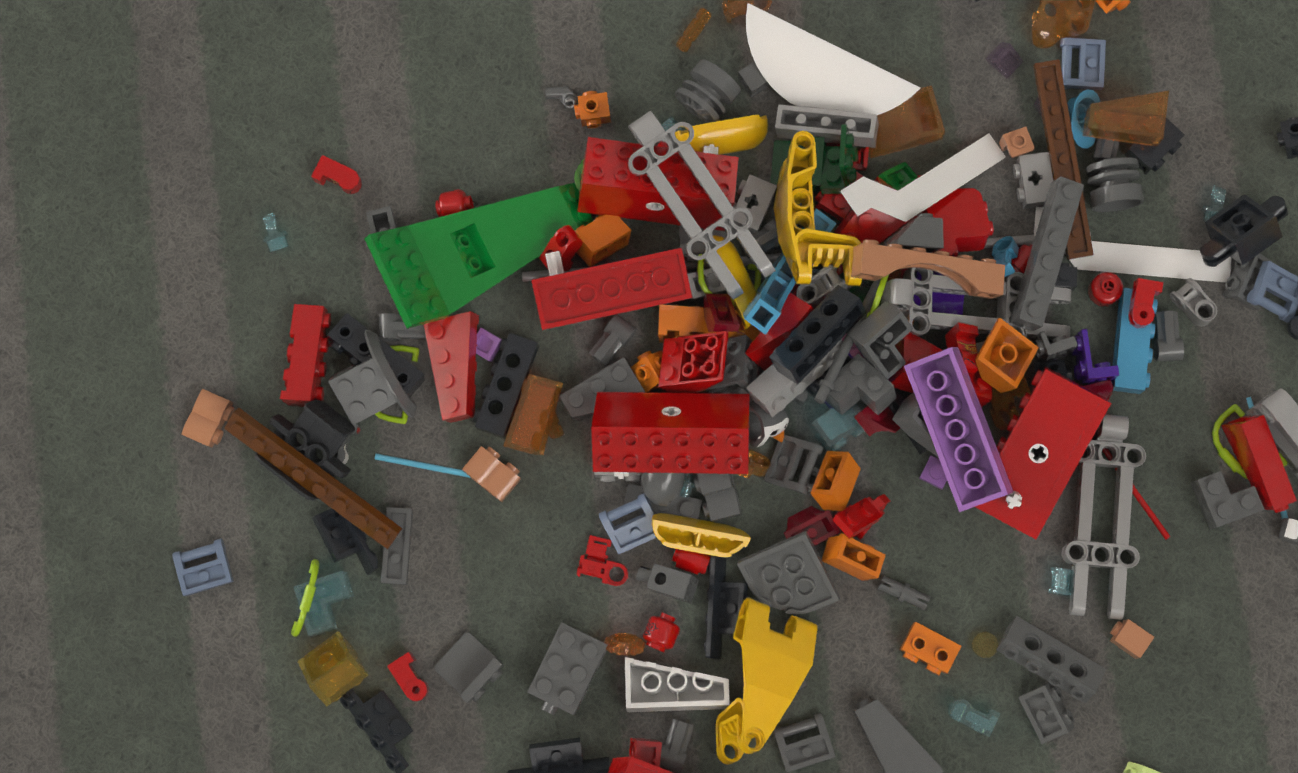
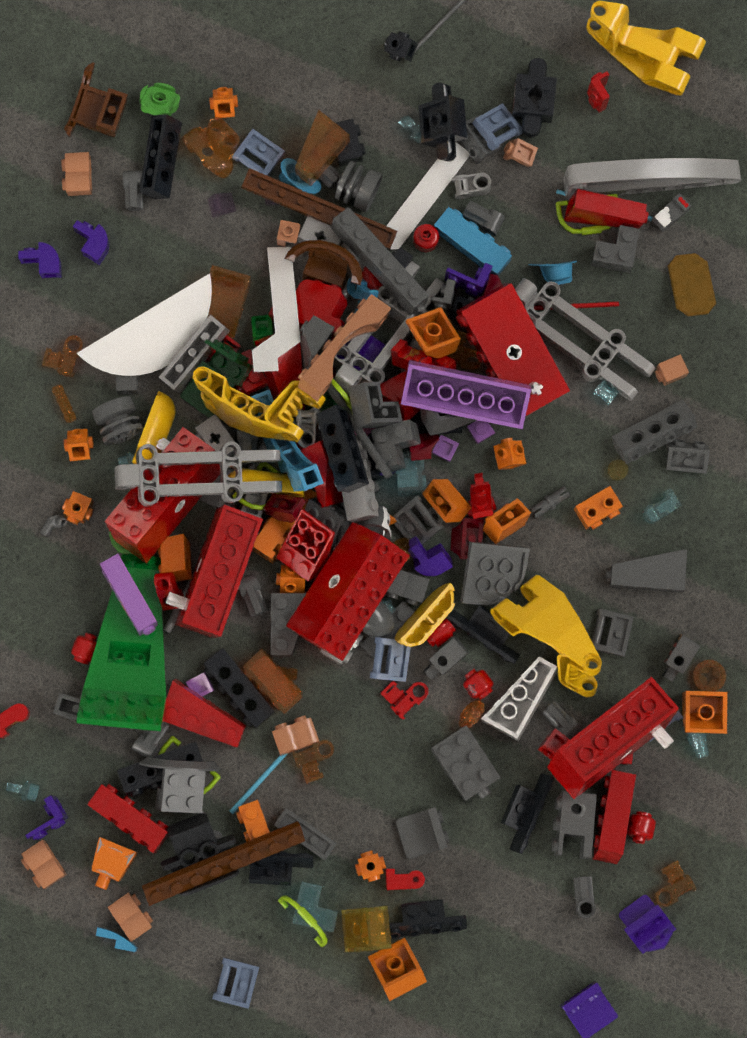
camera: 70 degrees left, 0 degrees up
(176, 424) = (121, 941): none -> dark azure slope
(209, 299) = (43, 865): none -> nougat brick
(252, 364) = (111, 862): none -> orange torso
(270, 275) = (55, 810): none -> dark purple bracket
(311, 727) = (397, 969): none -> orange slope
(378, 484) = (253, 819): none -> orange brick
(411, 635) = (362, 863): none -> orange brick
(474, 503) = (308, 760): none -> clear orange piece
(530, 211) = (129, 595): none -> medium lavender slope
(659, 69) = (78, 444): none -> orange brick
(759, 502) = (429, 562): none -> dark purple brick
(892, 446) = (445, 448): none -> medium lavender plate
(928, 518) = (509, 454): none -> orange brick
(1010, 201) = (327, 262): none -> reddish brown piece
(1141, 303) = (456, 223): red leg -> none
(1157, 450) = (558, 273): none -> dark azure piece
(1240, 604) = (691, 284): none -> pearl gold shield
(1265, 332) = (520, 151): none -> nougat bracket

